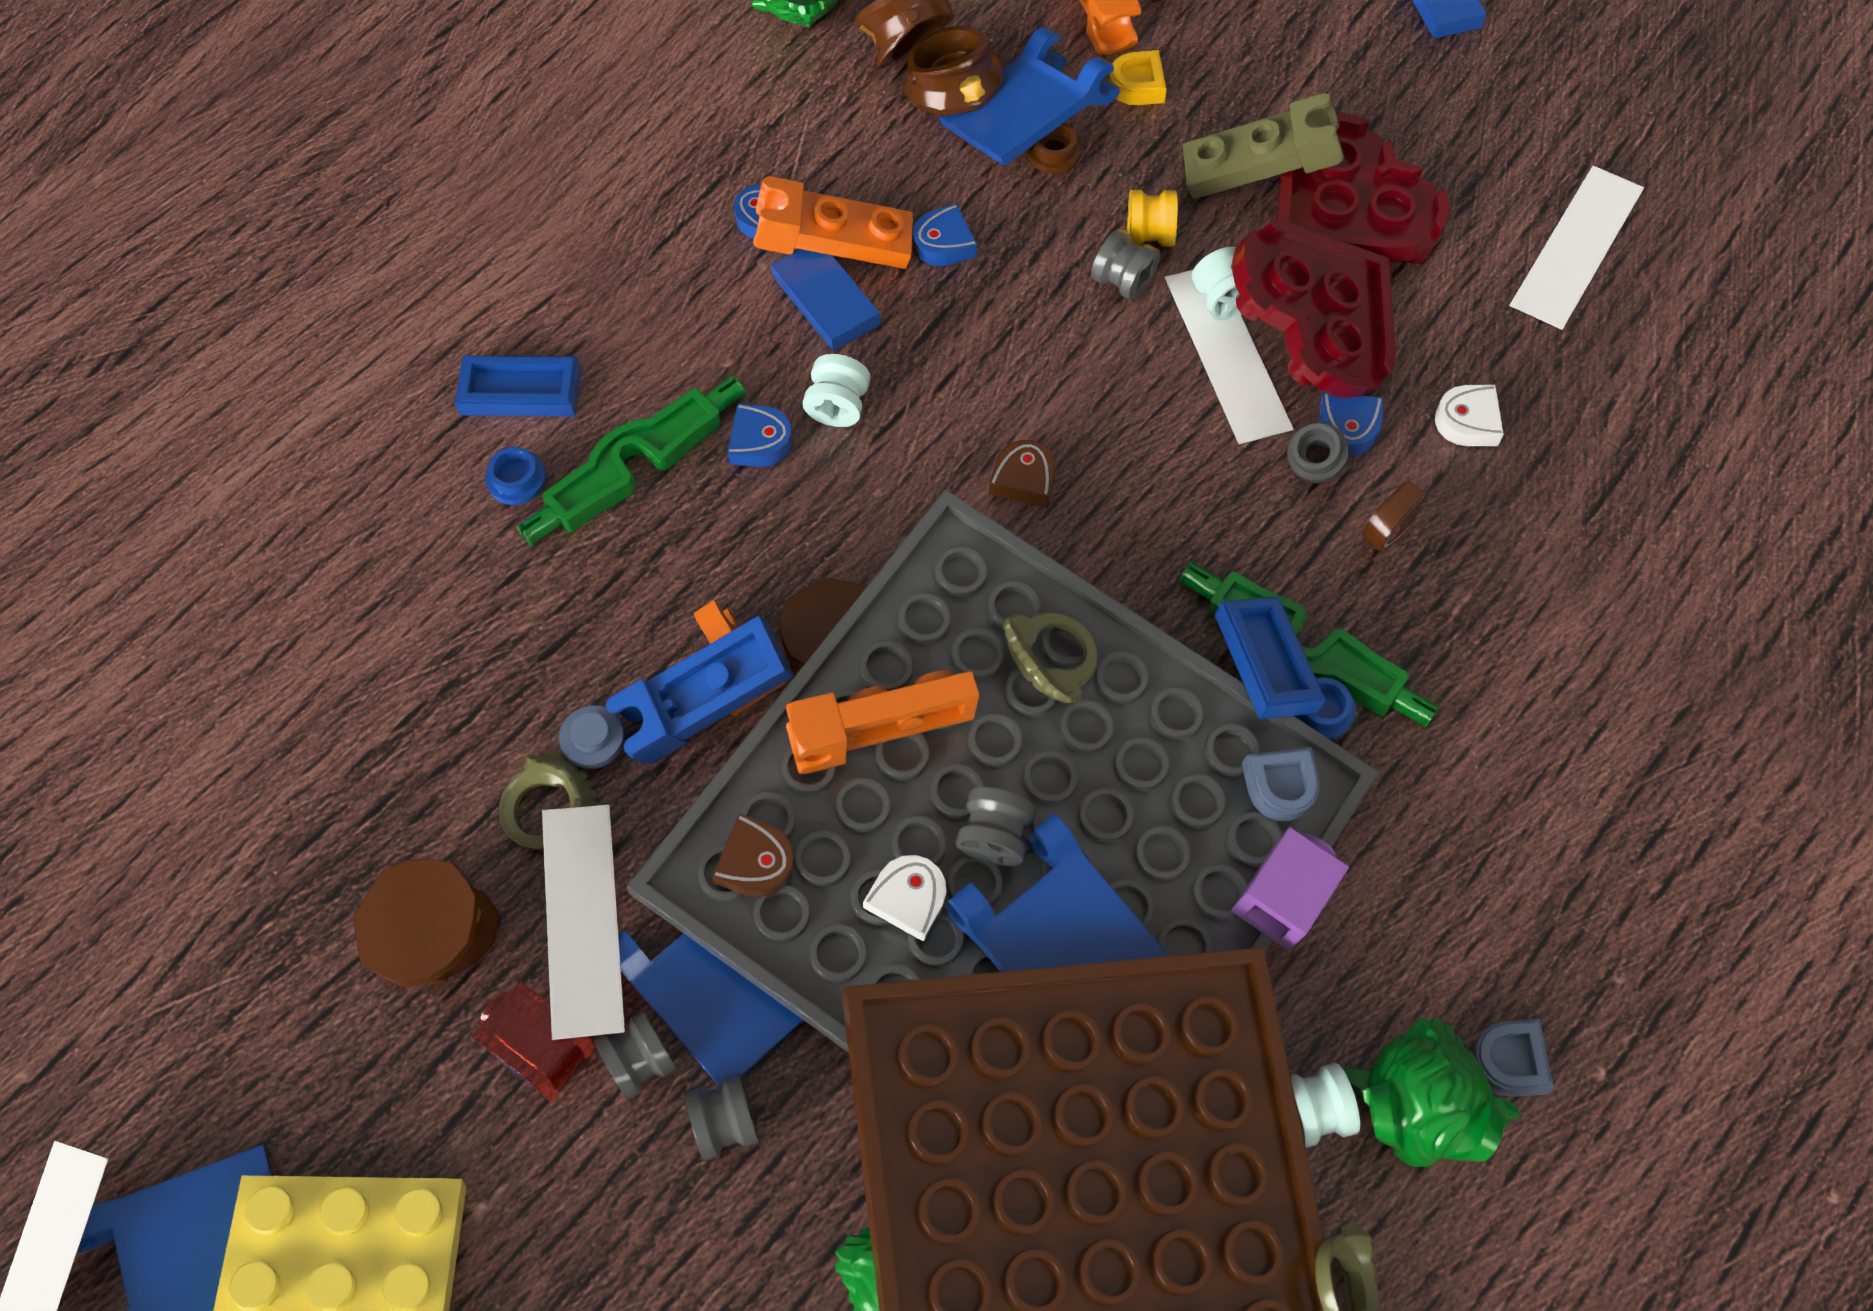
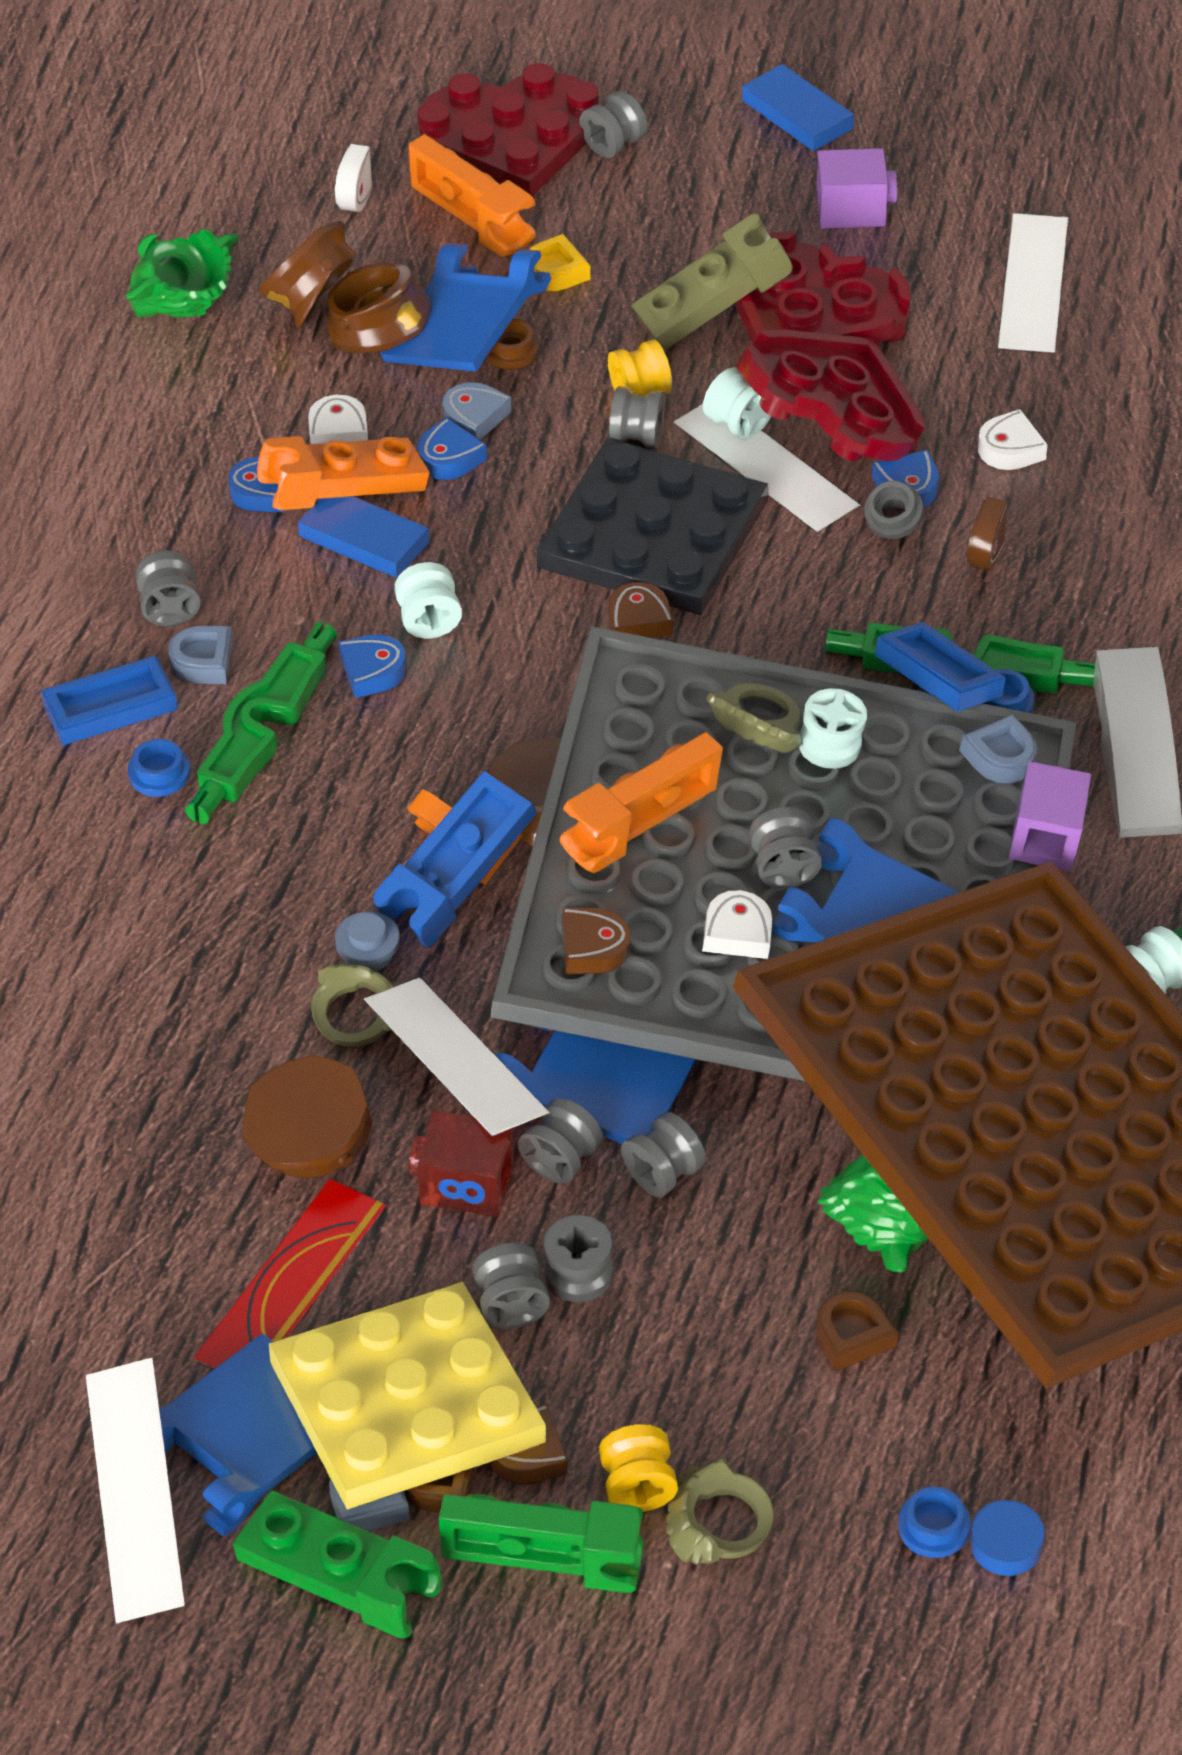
camera: 25 degrees left, 15 degrees down
(334, 1083) = (295, 1272): none -> red sticker
(498, 1208) = (510, 1285): none -> dark grey wheel
(593, 1211) = (591, 1269): none -> dark grey wheel
(620, 292) = (167, 588): none -> dark grey wheel
(622, 368) = (202, 654): none -> sand blue tile
(862, 174) = (337, 419): none -> white tile
(989, 202) = (476, 407): none -> sand blue tile
(1087, 383) = (653, 523): none -> black plate
(1122, 684) = (832, 728): none -> light aqua wheel
(1431, 821) = (1137, 742): none -> light grey slope
(1448, 91) = (854, 188): none -> medium lavender brick

